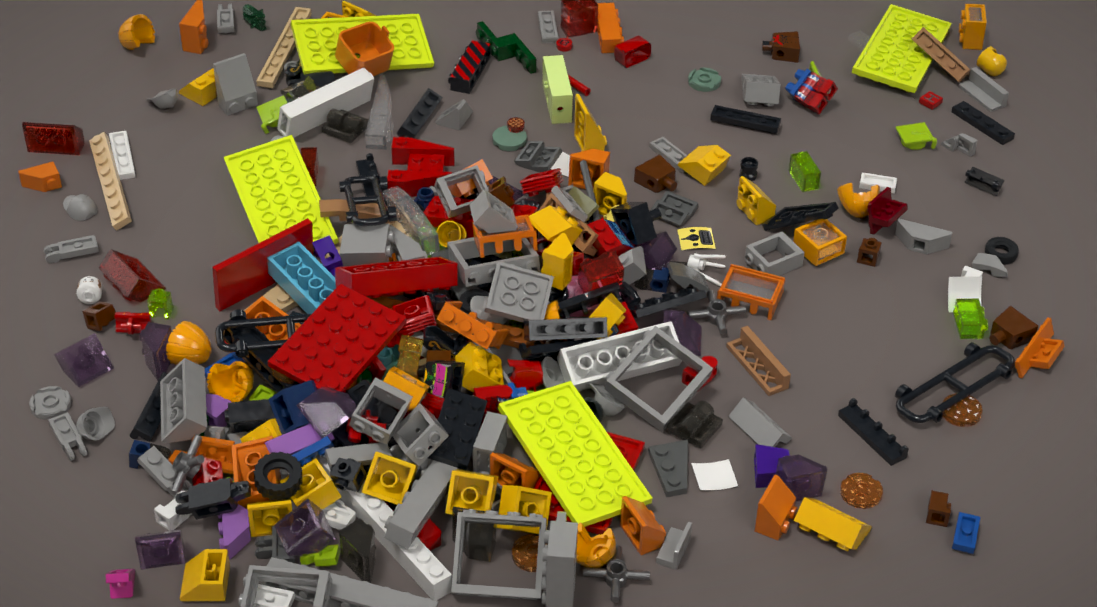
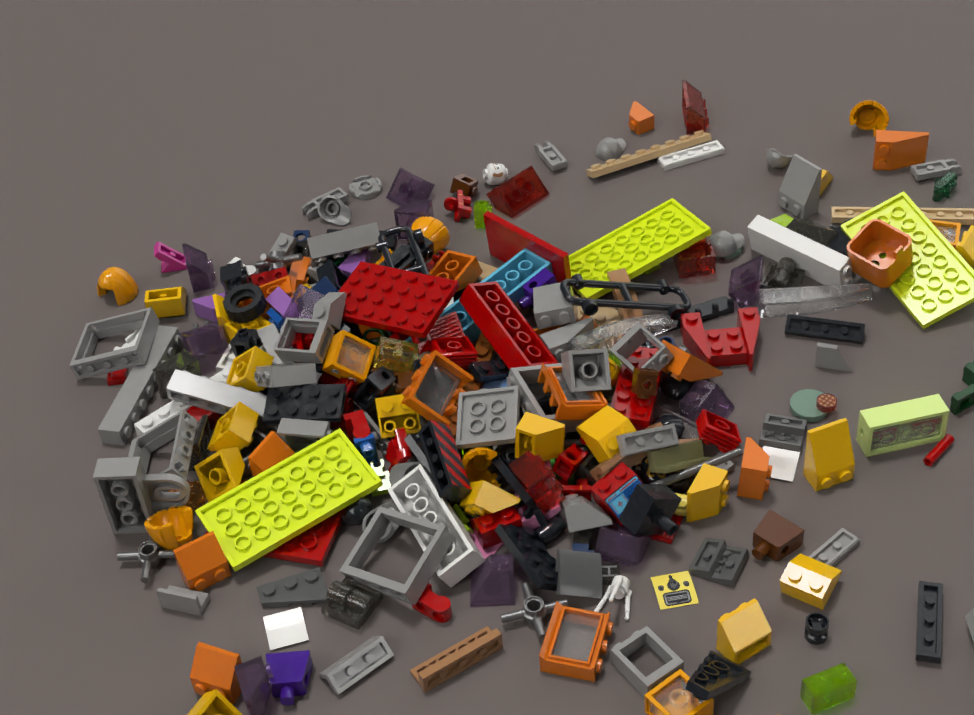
camera: 90 degrees right, 0 degrees up
(348, 381) = (330, 308): none -> light grey slope
(354, 135) = (746, 282): none -> clear purple slope
(470, 67) = (927, 353): black brick -> none

